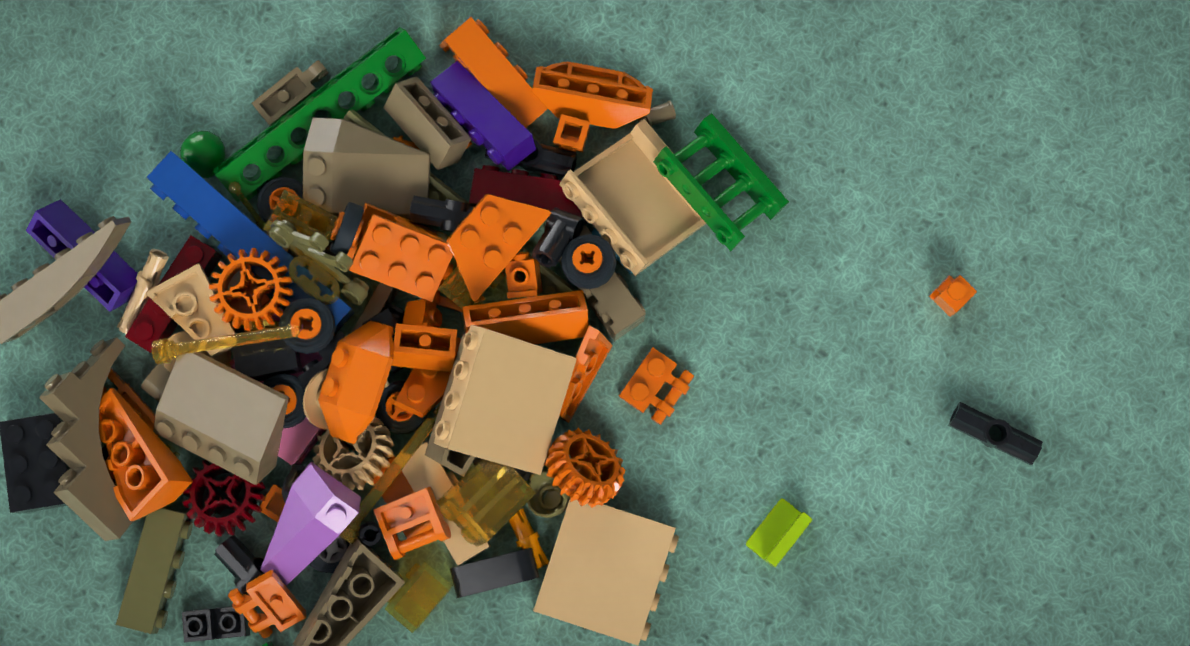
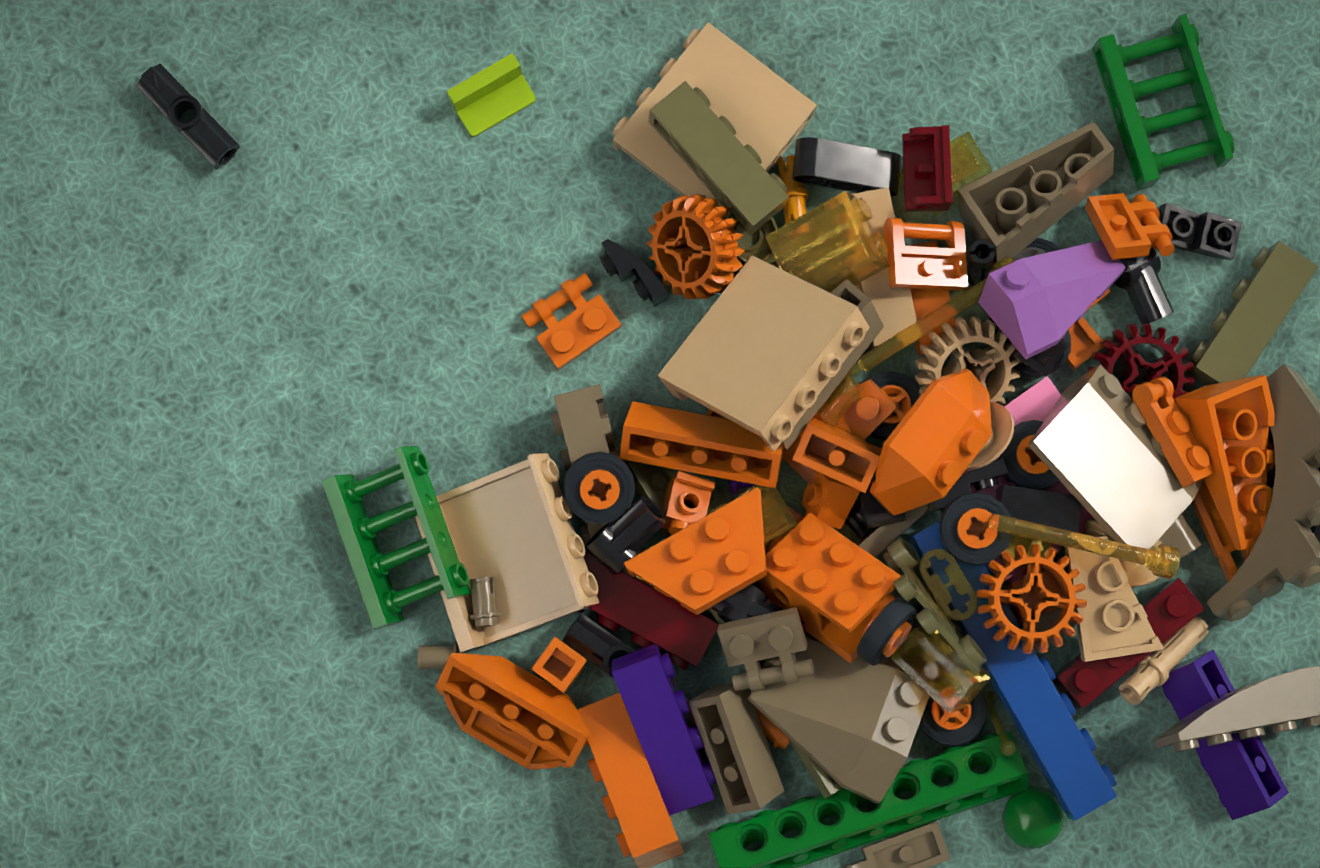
camera: 160 degrees left, 0 degrees up
(186, 453) = (1172, 431): none -> orange plate
(432, 195) = (764, 638): none -> dark tan plate
(433, 587) = (927, 169): none -> dark red hinge
(435, 394) = (840, 401): none -> clear yellow pin
(589, 360) = (644, 374): orange wing -> none
(591, 538) = (718, 157): none -> olive brick
(633, 440) = (625, 264): none -> black slope
(641, 159) = (484, 602): none -> dark tan pin
(952, 294) = (167, 297): orange brick -> none

